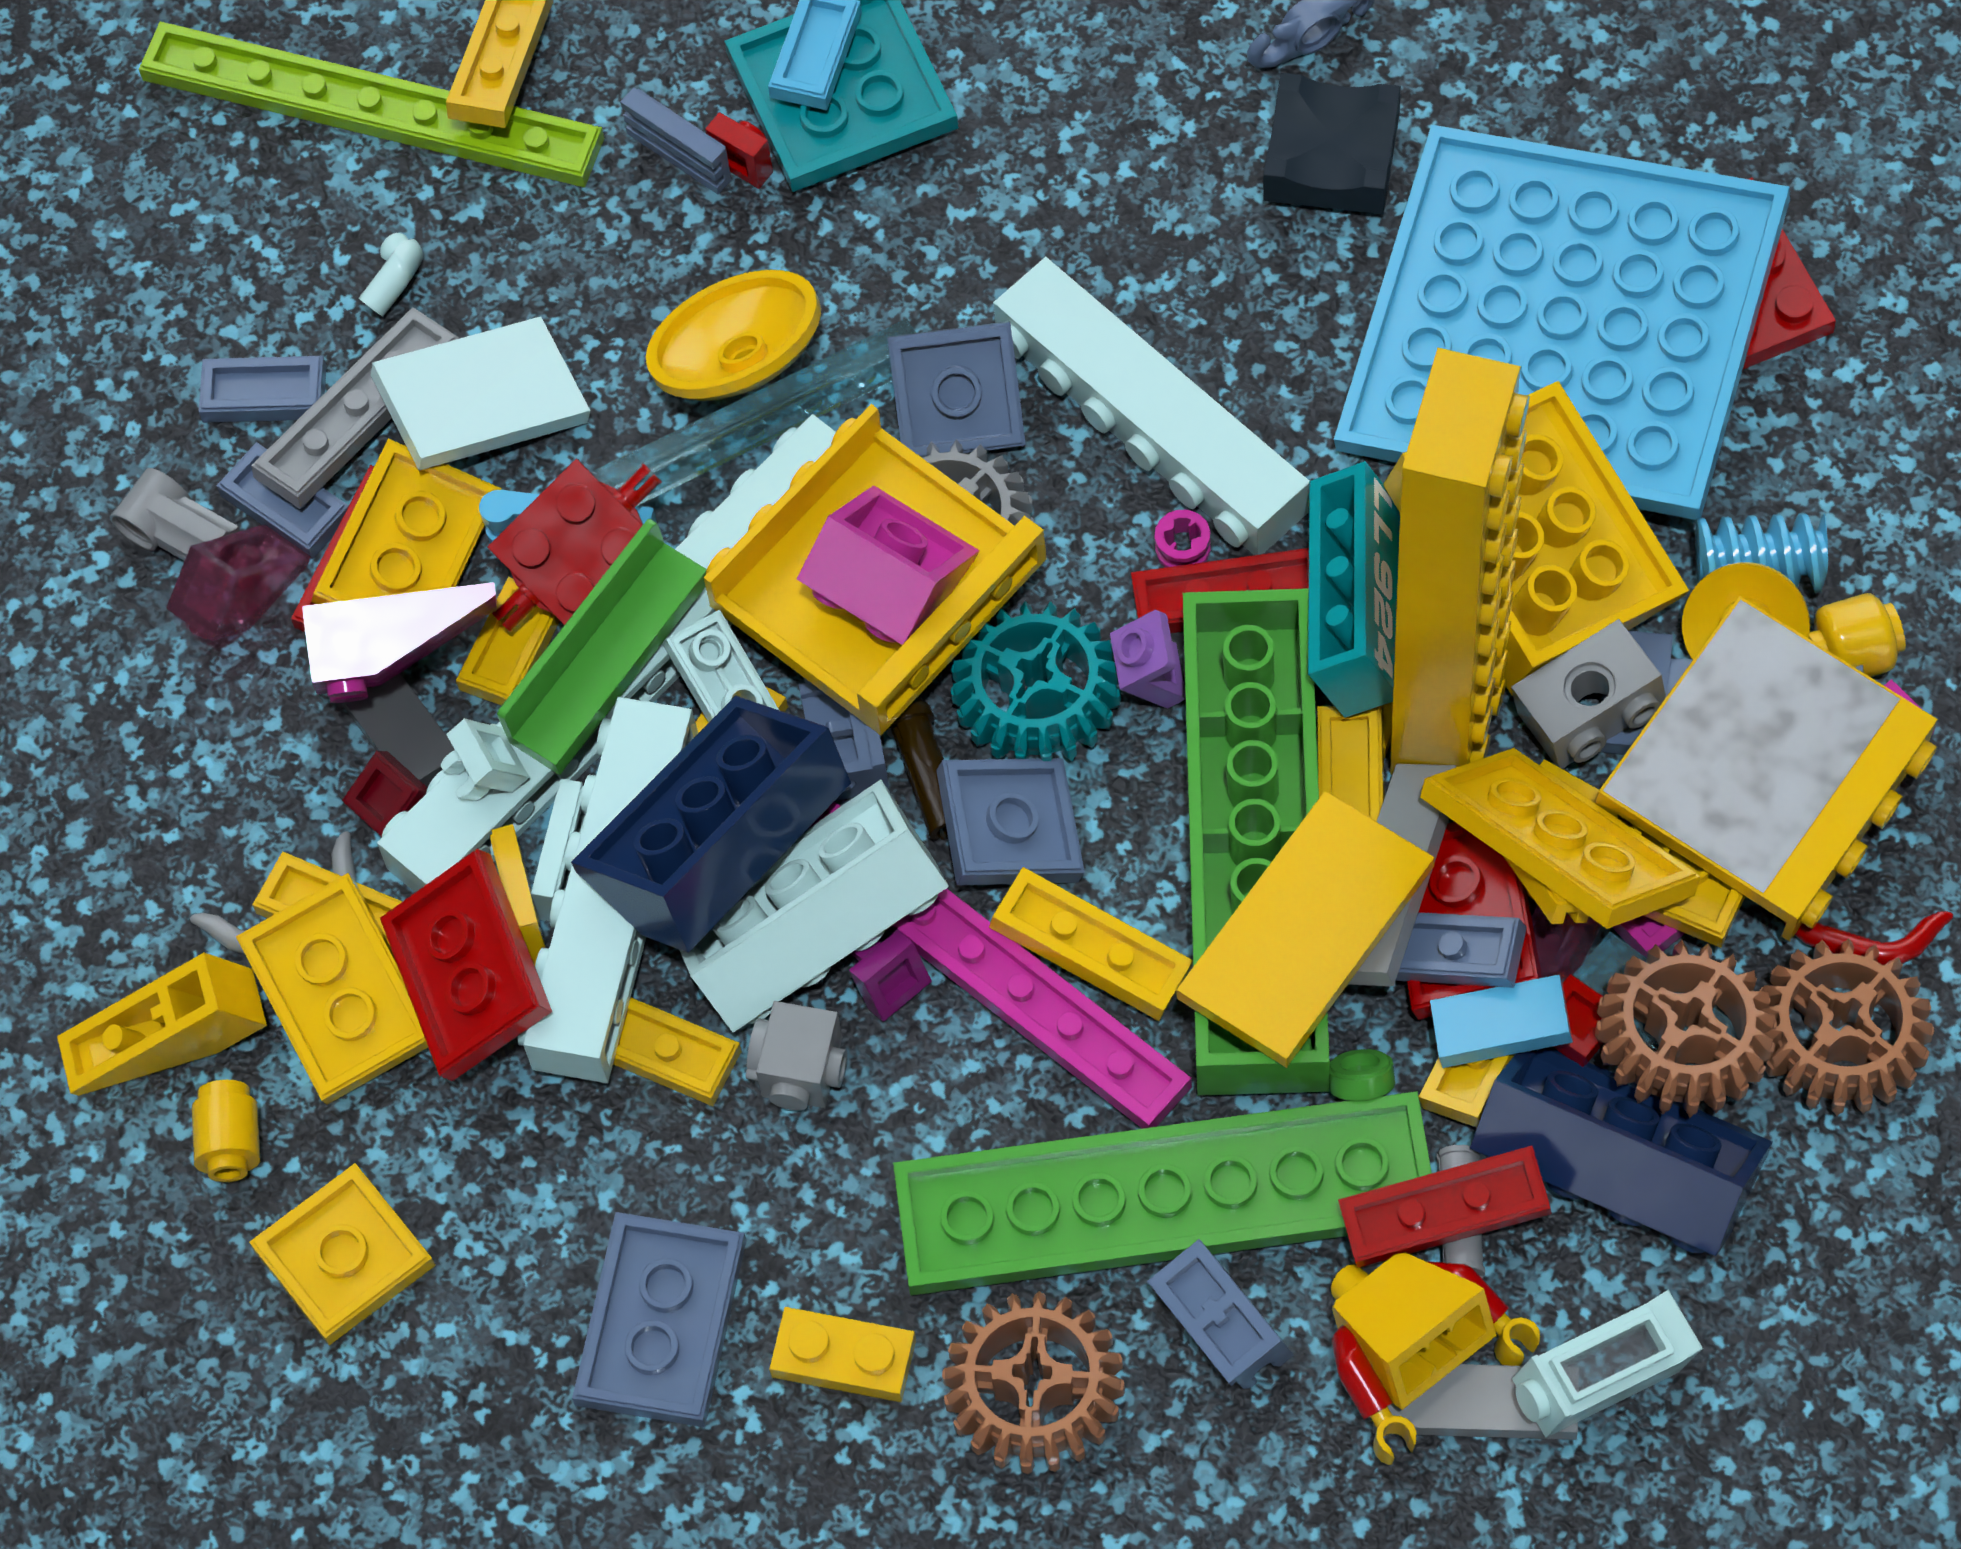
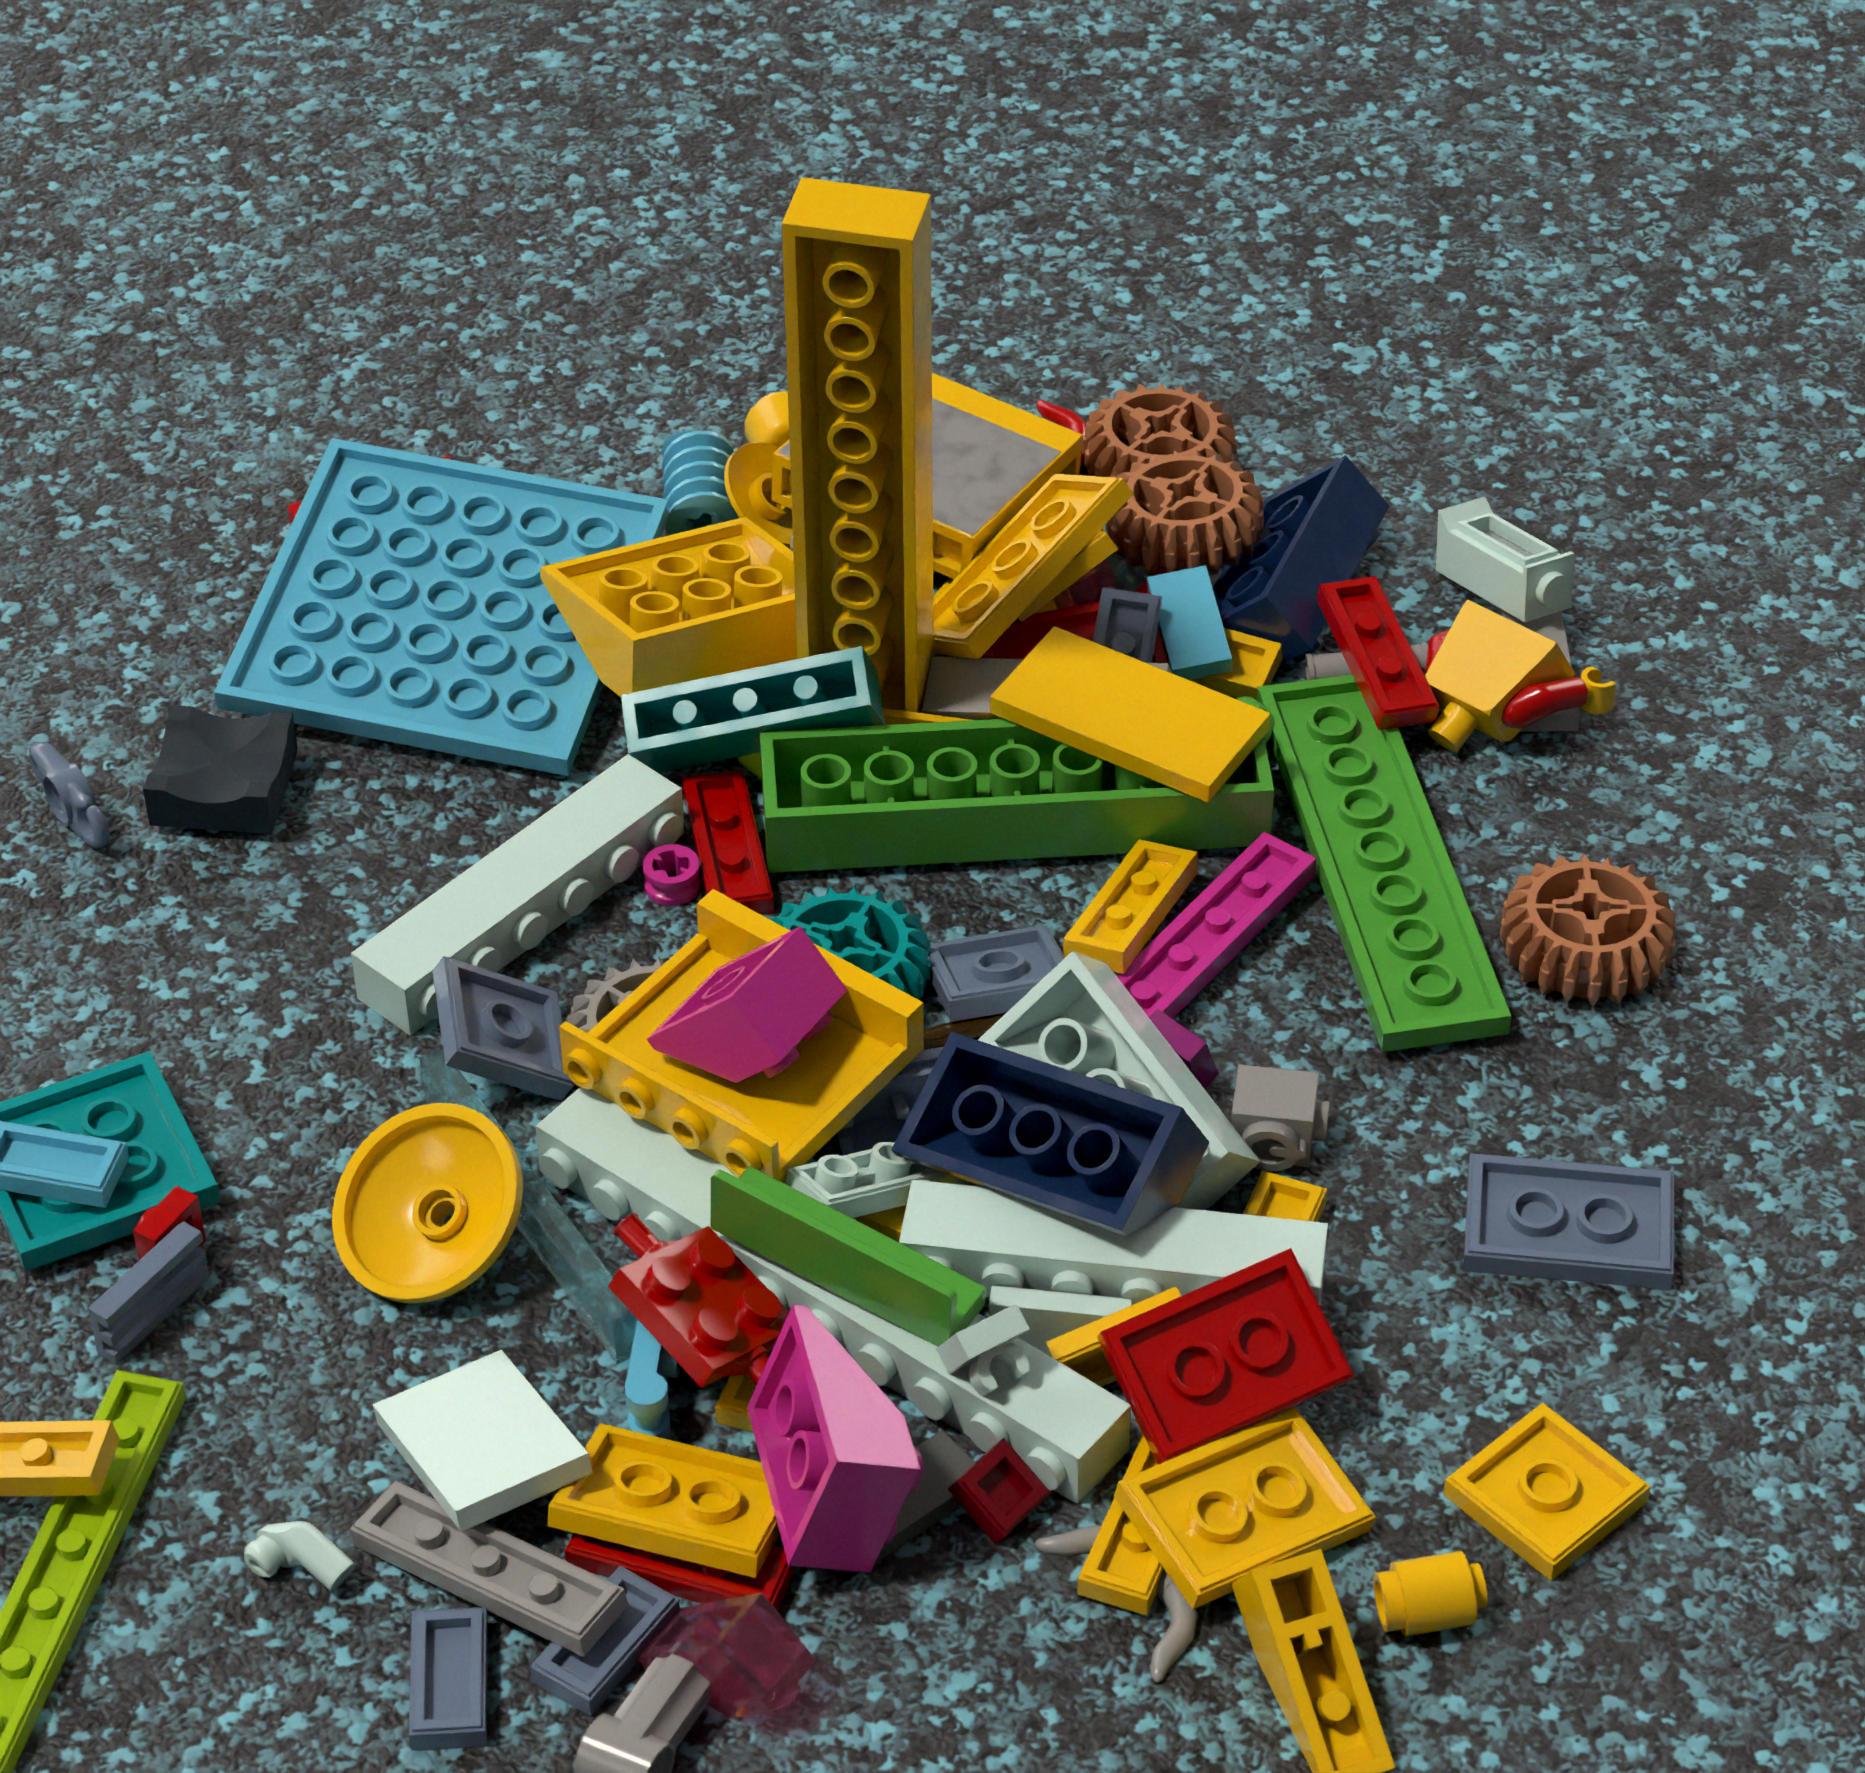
camera: 100 degrees left, 20 degrees down
(843, 1354) = (1579, 1080): yellow plate -> none
(1148, 660) = (821, 857): medium lavender bracket -> none
(1219, 1315) = (1499, 798): sand blue hinge -> none

